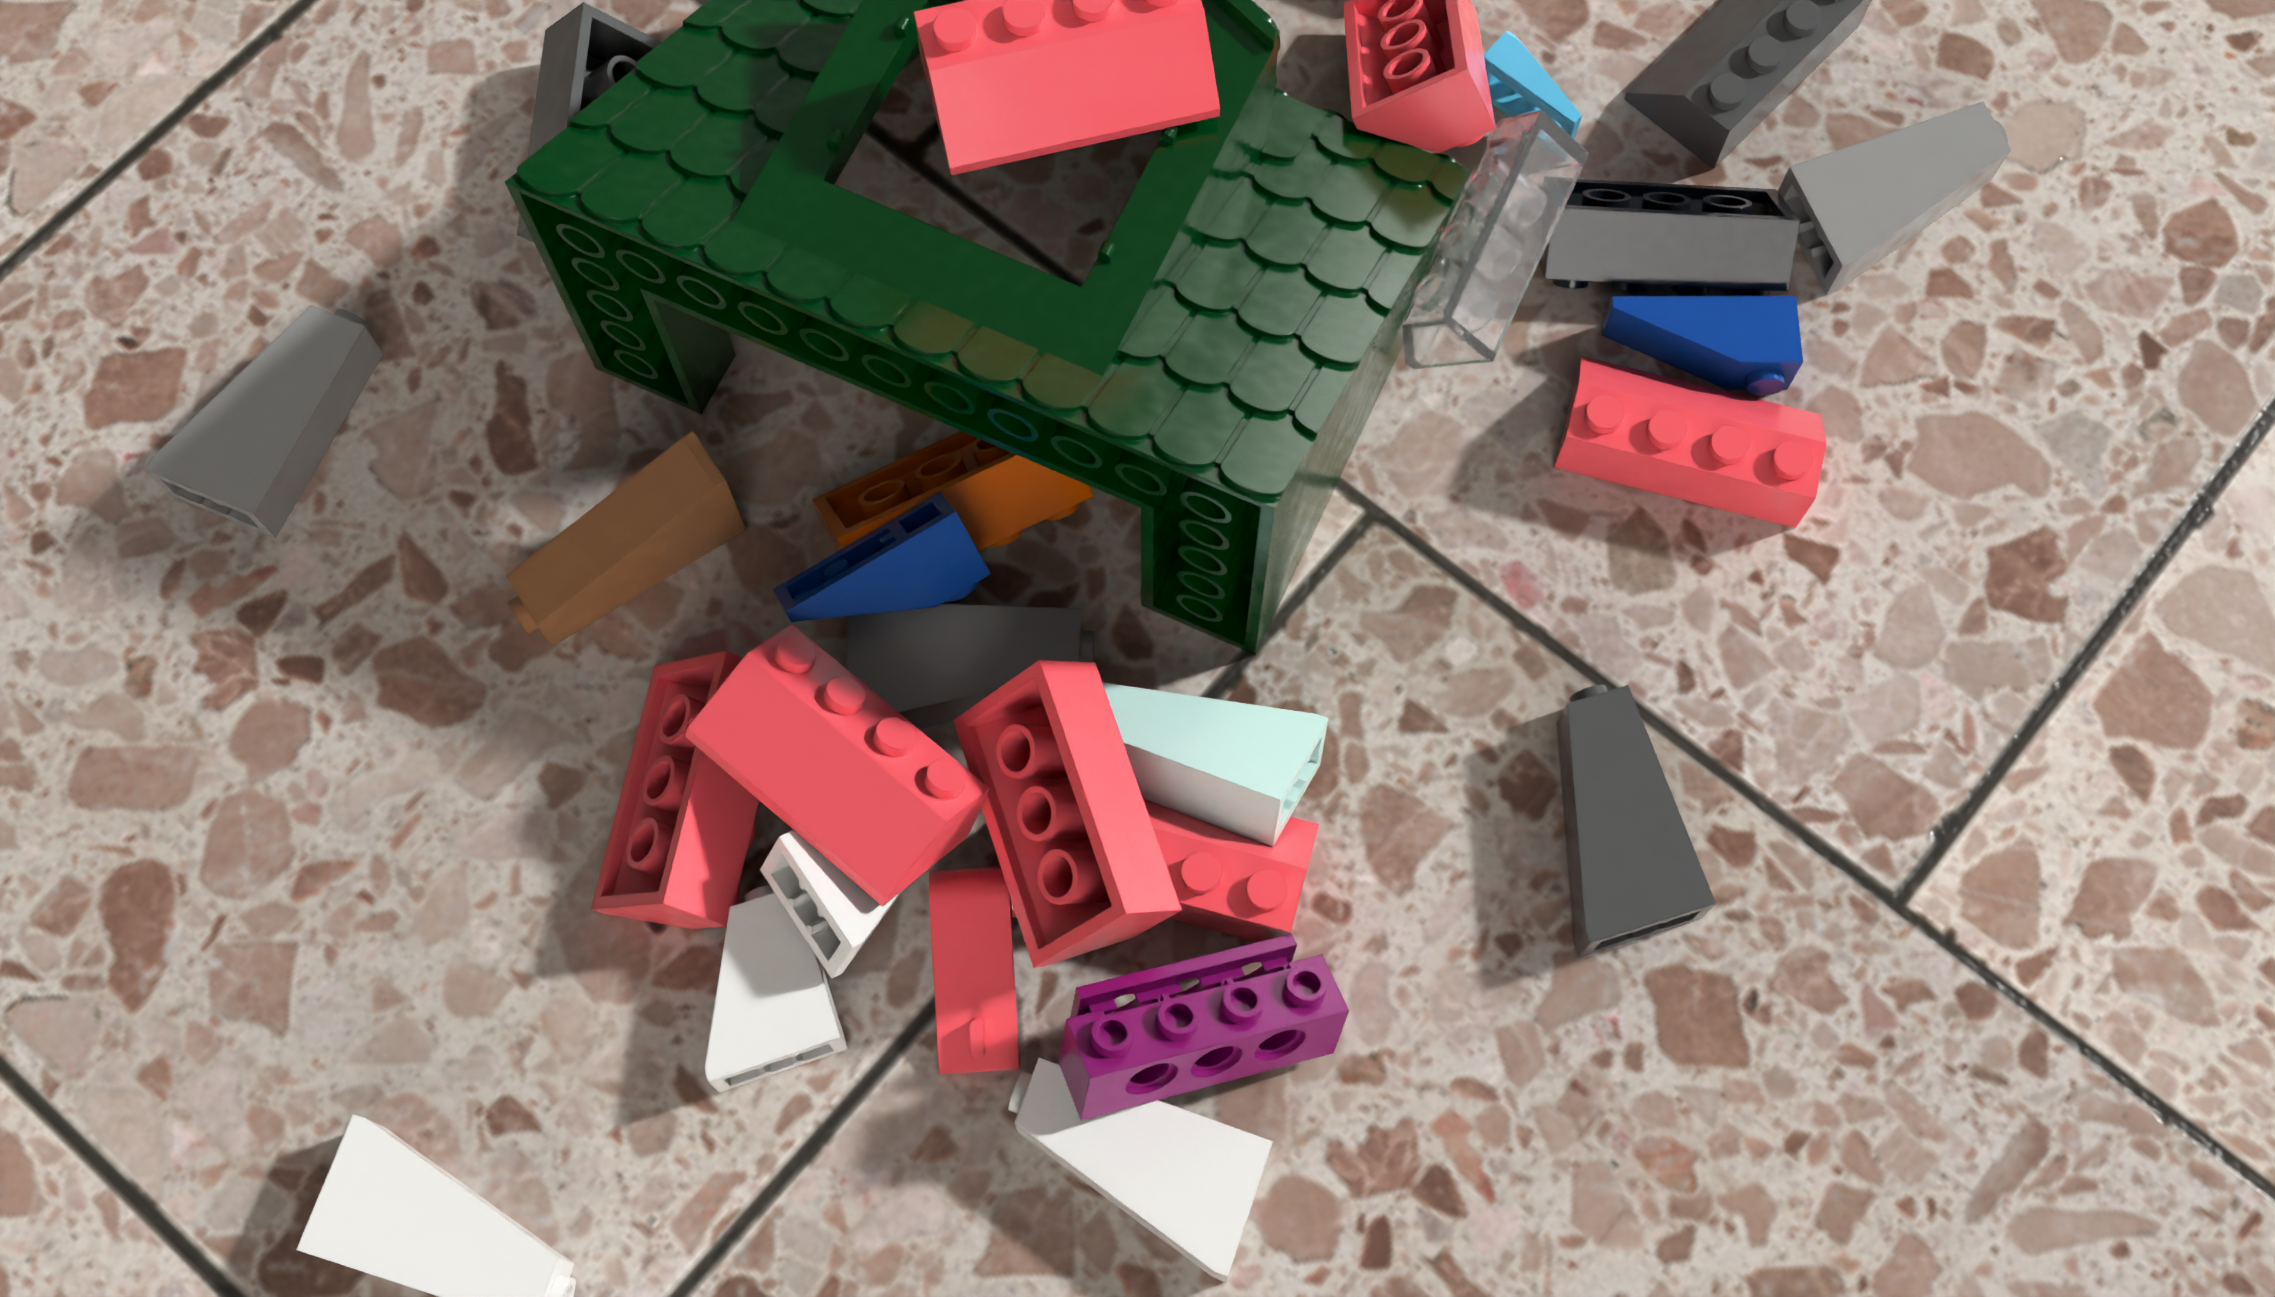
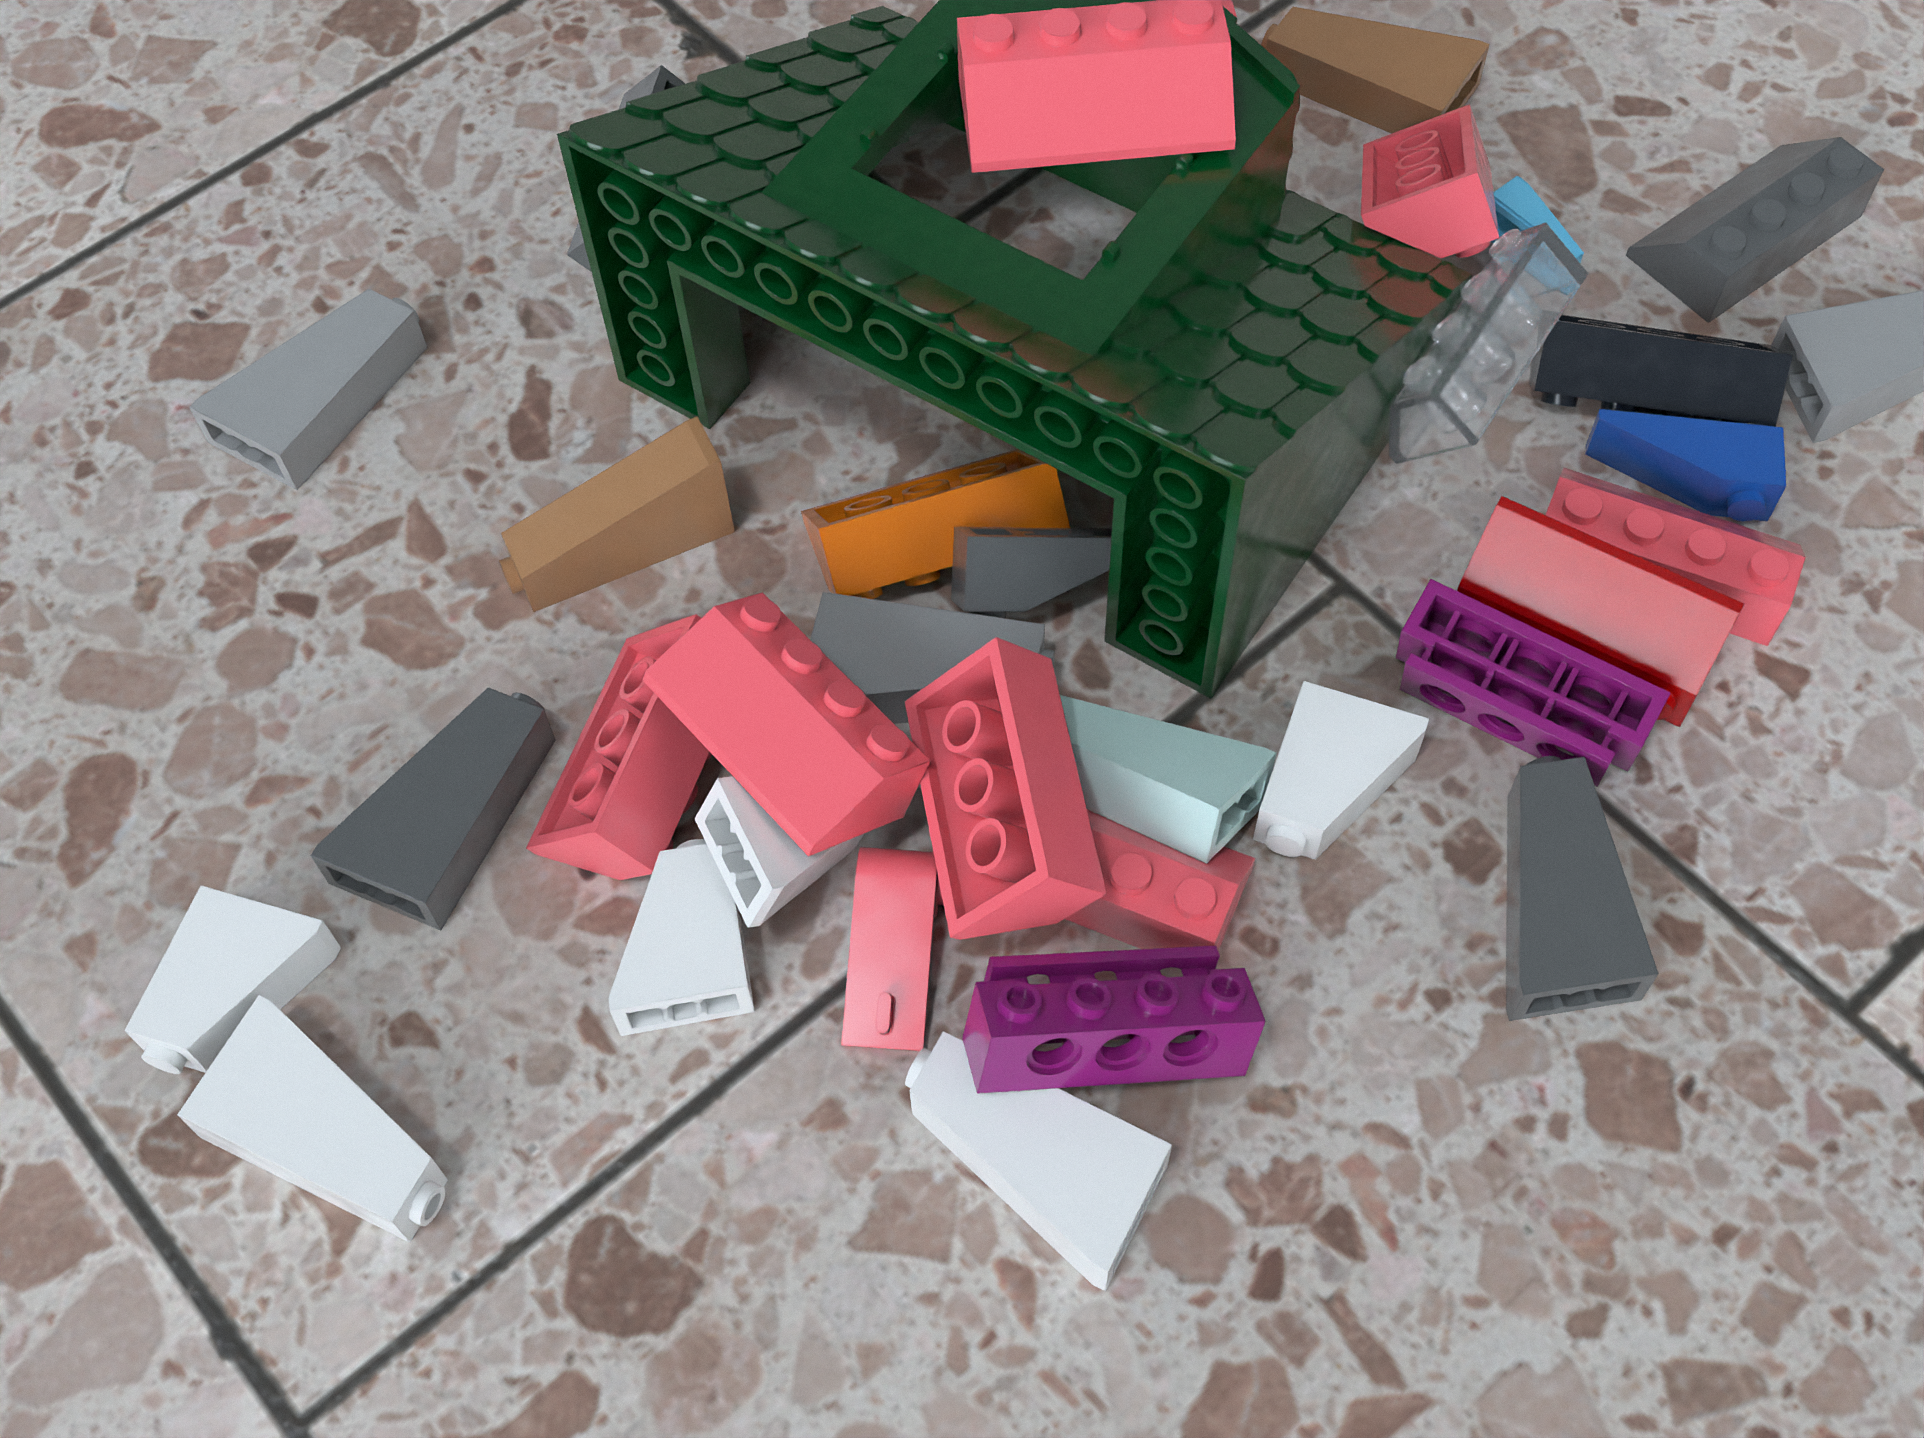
camera: 10 degrees right, 10 degrees down
(303, 1093) = (217, 968): none -> white slope
(499, 885) = (441, 811): none -> dark grey slope
(897, 567) = (882, 559): blue slope -> none
(1052, 544) = (1023, 567): none -> dark grey slope
(1382, 721) = (1332, 768): none -> white slope
(1568, 600) = (1526, 678): none -> magenta brick
(1623, 526) = (1601, 601): none -> slope

